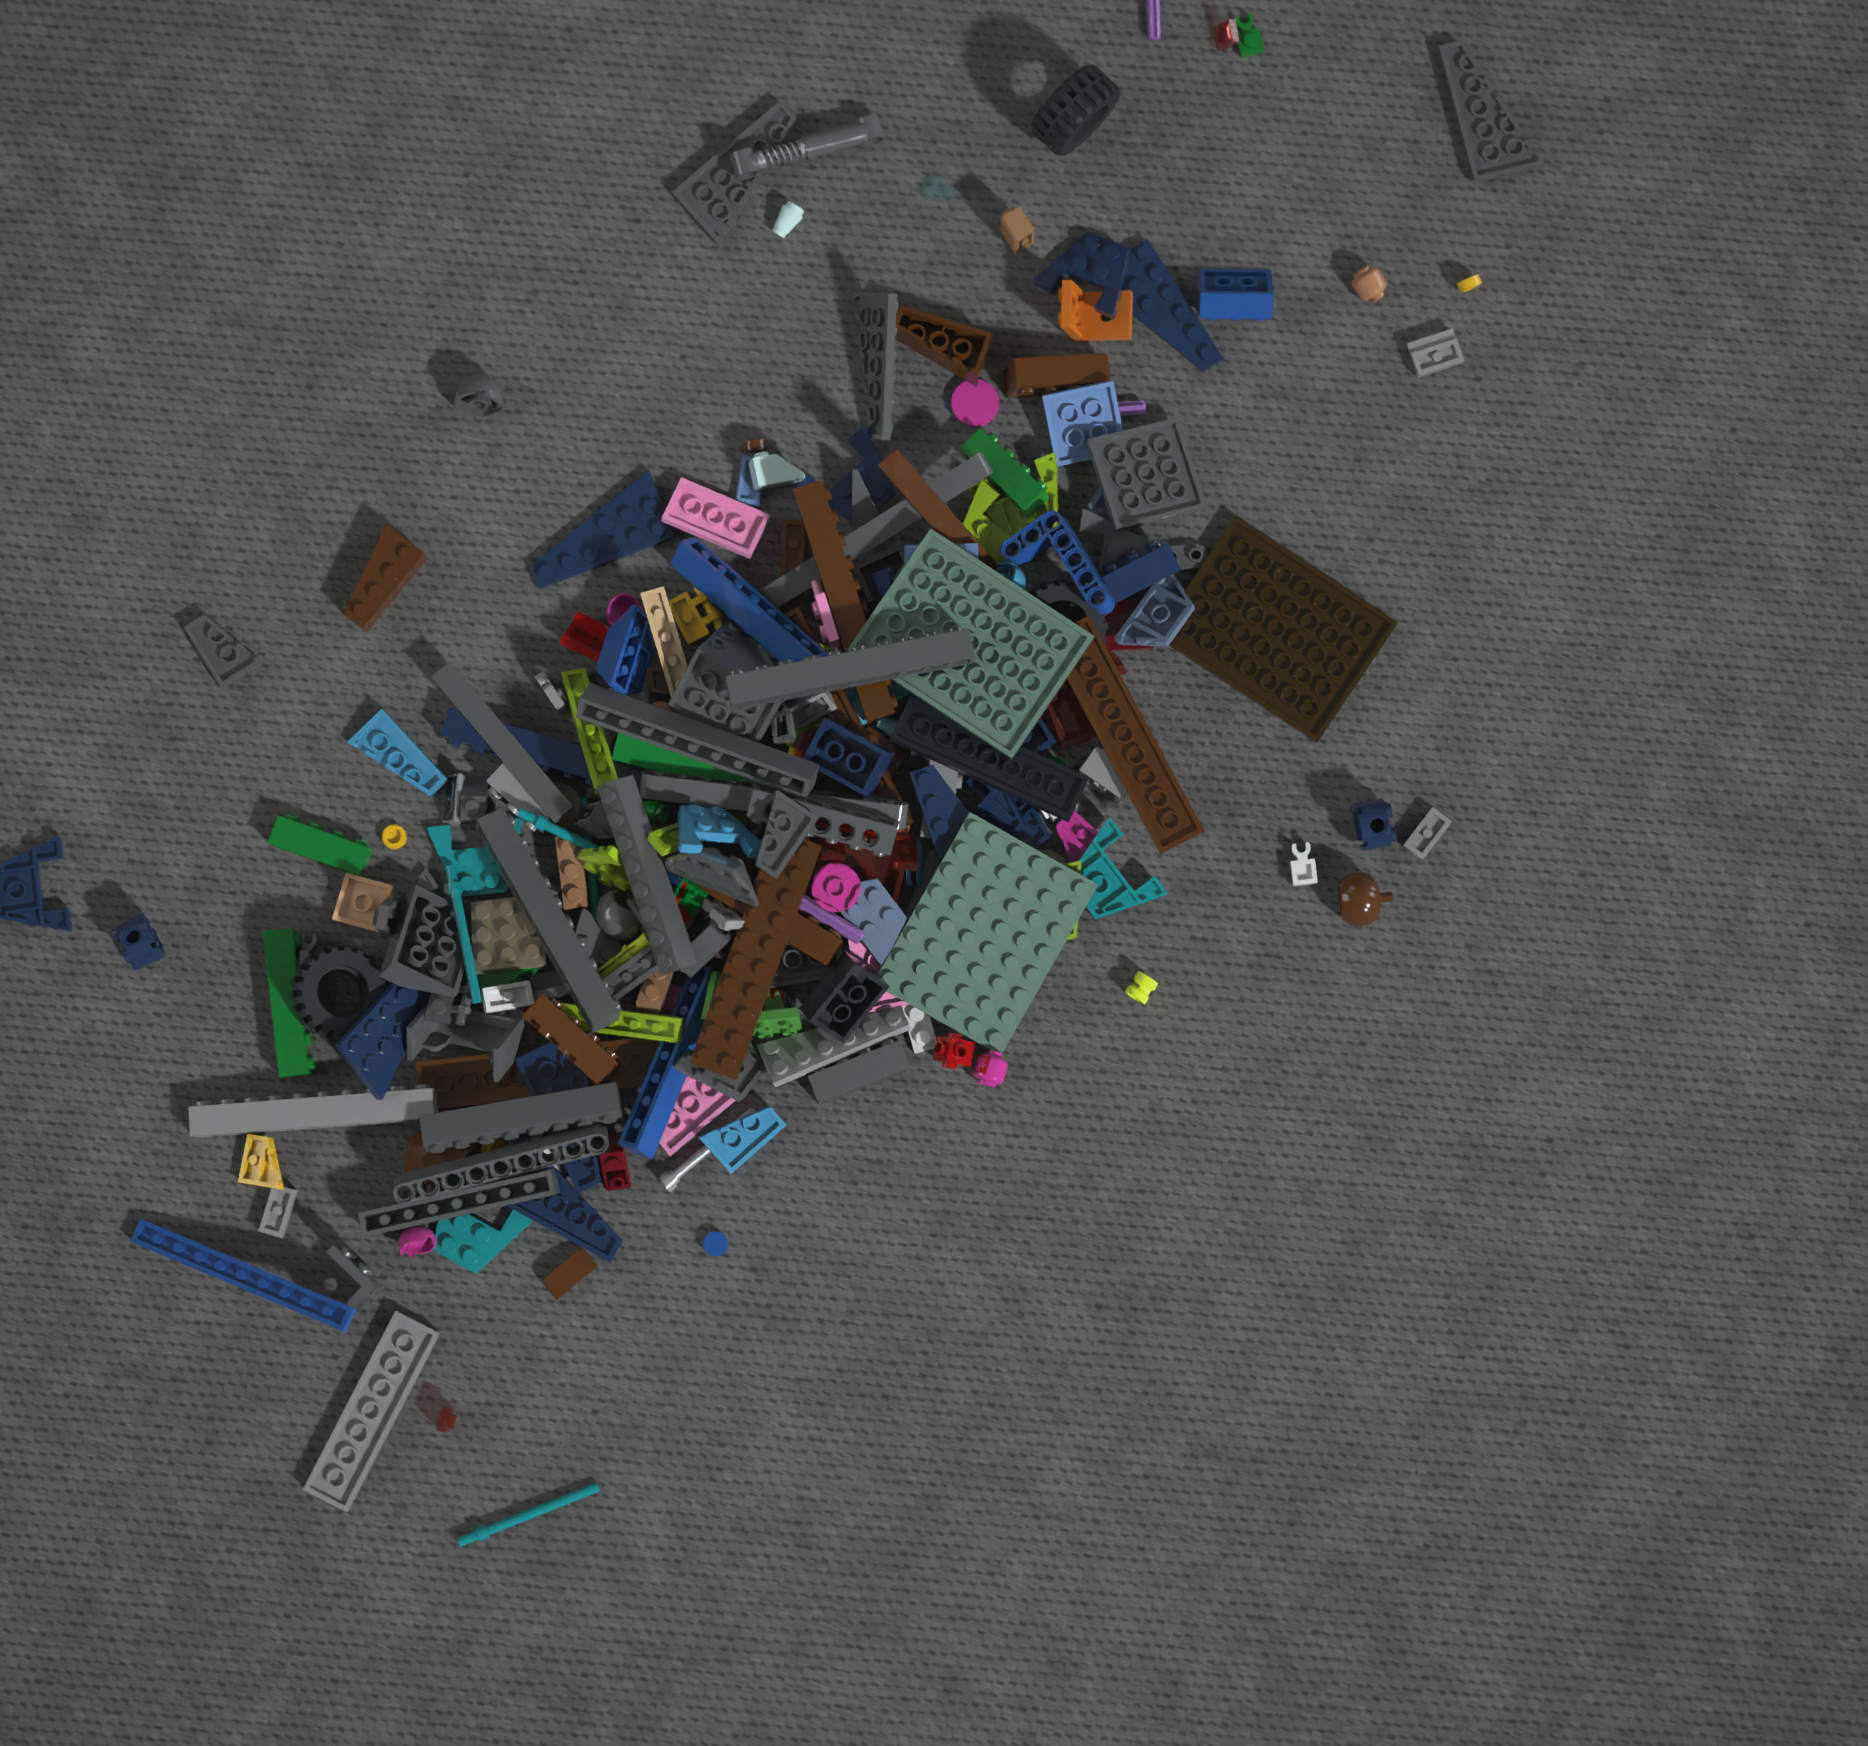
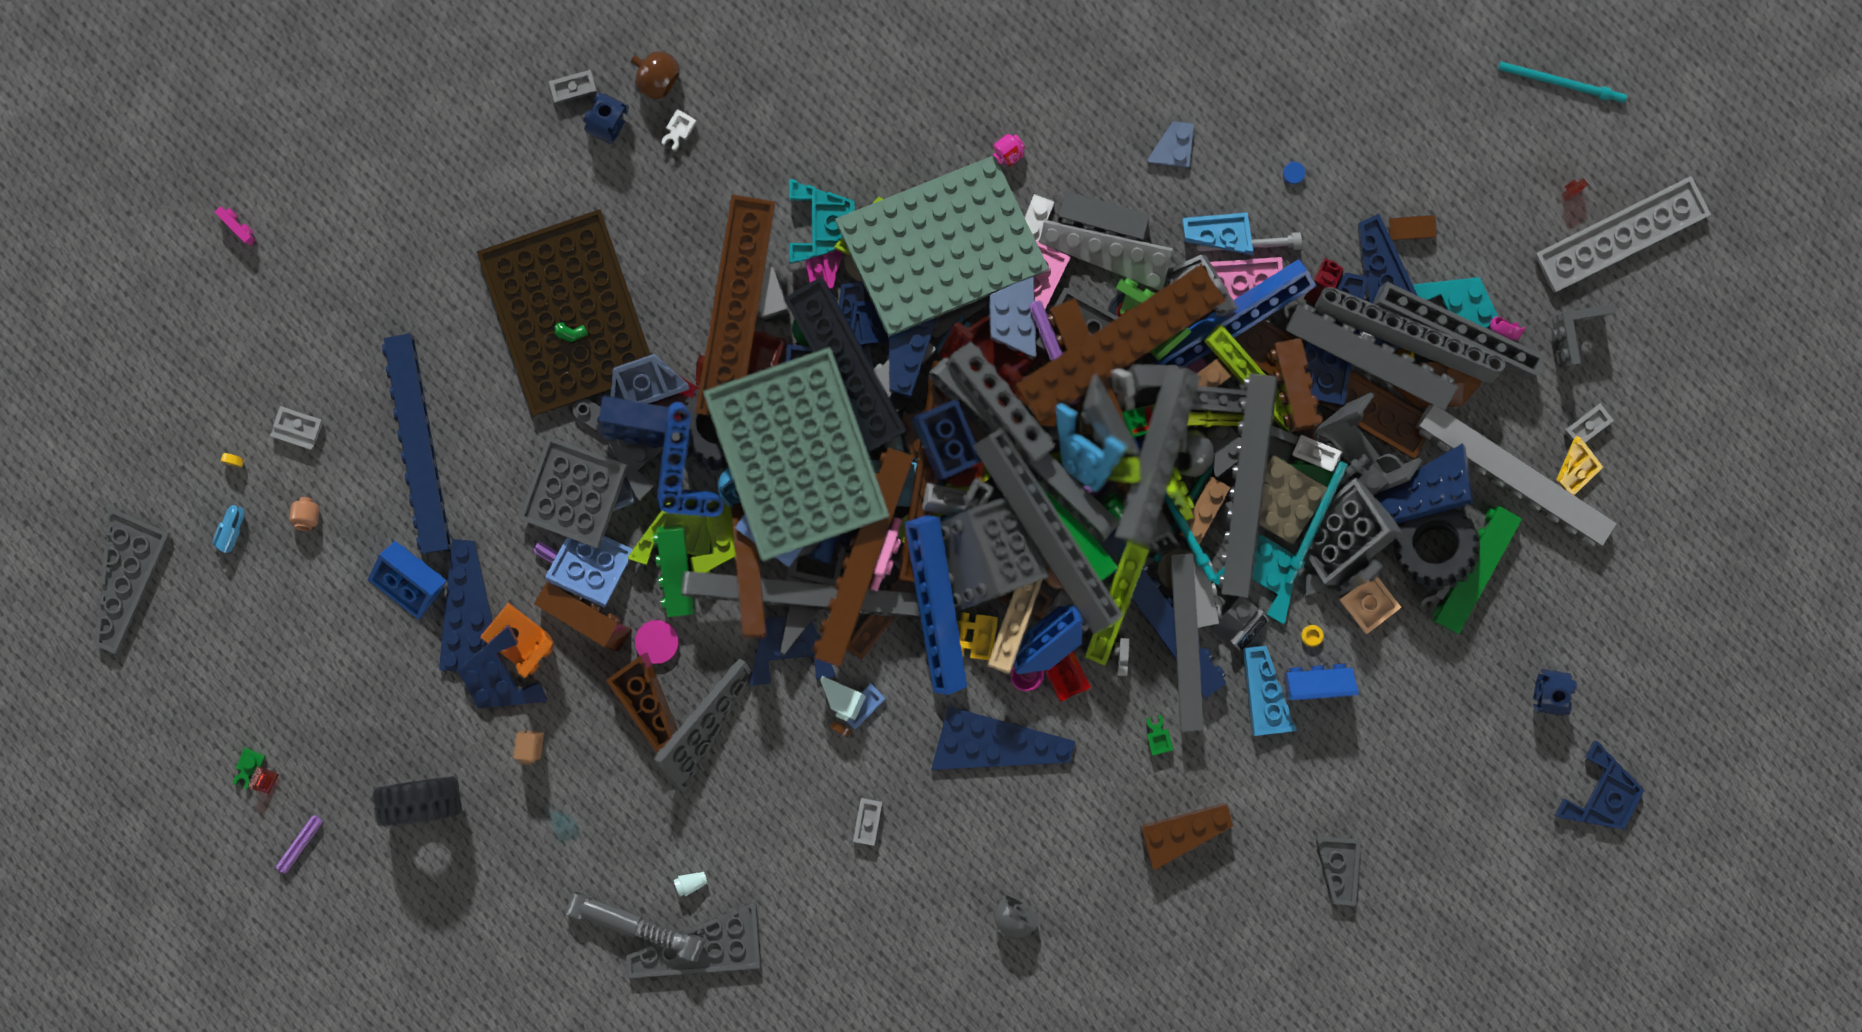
camera: 150 degrees left, 5 degrees up
(243, 1275) = (1650, 392): blue plate -> none
(320, 846) = (1371, 667): green brick -> none
(356, 796) = (1320, 682): none -> blue slope
(466, 644) = (1158, 739): none -> green plate
(671, 384) = (867, 821): none -> light grey plate
(715, 518) = (909, 696): bright pink plate -> none
(784, 834) = (1038, 409): dark grey wing -> none
(835, 887) = (1026, 350): dark pink tile -> none
(843, 1187) = (1174, 146): none -> sand blue wing
(844, 997) = (1077, 270): black brick -> none
(850, 668) = (900, 495): dark grey brick -> none
(953, 1051) = (1026, 180): red brick -> none
(1141, 987) = (858, 128): neon yellow wheel -> none
(1258, 608) = (570, 334): none -> green arm
(1318, 417) = (417, 443): none -> dark blue brick
(1424, 222) = (228, 529): none -> dark azure arm
(1638, 489) = (230, 218): none -> dark pink plate

